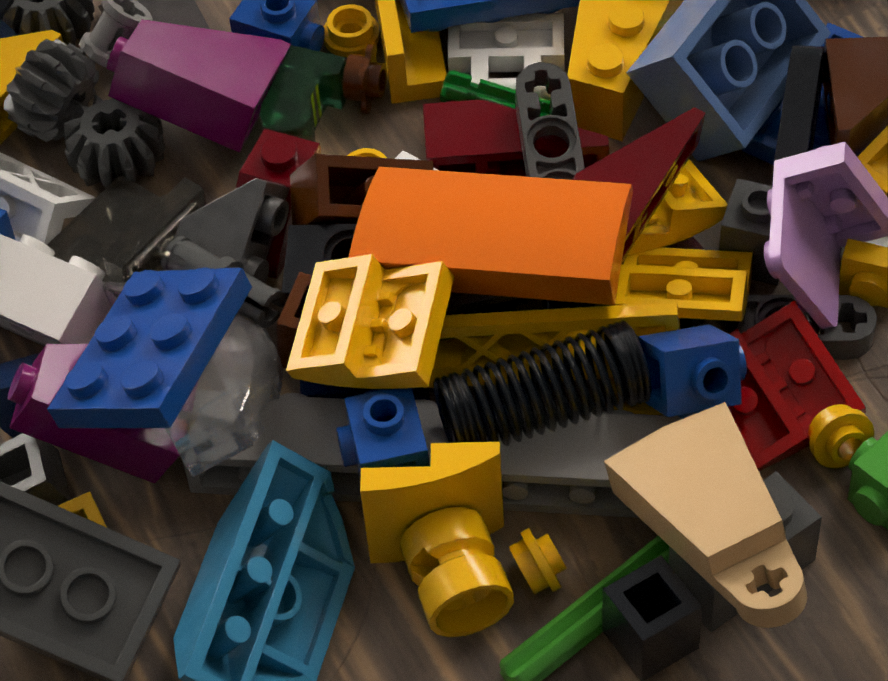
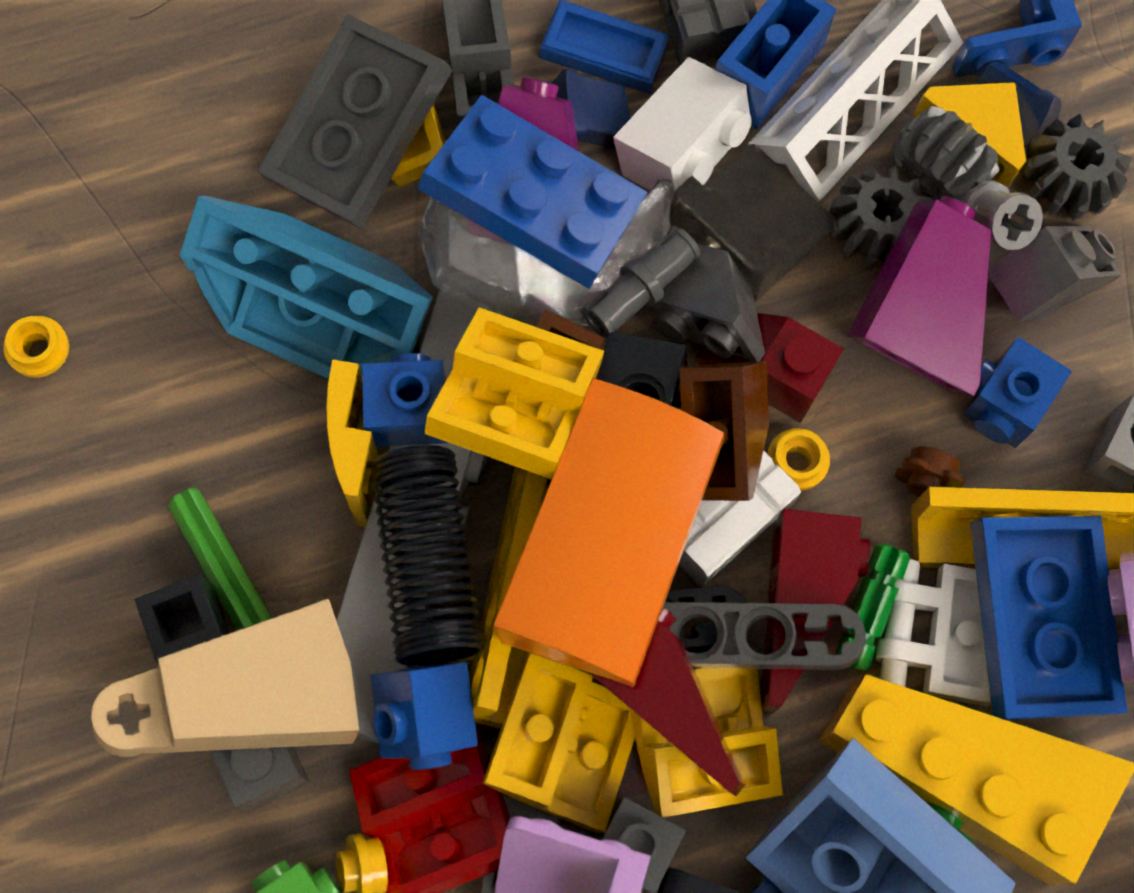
camera: 90 degrees right, 20 degrees up
(302, 92) = (906, 400): clear green leg -> none
(350, 30) = (1016, 458): yellow plate -> none
(456, 572) = (286, 462): yellow wheel -> none
(538, 561) = (290, 540): yellow plate -> none

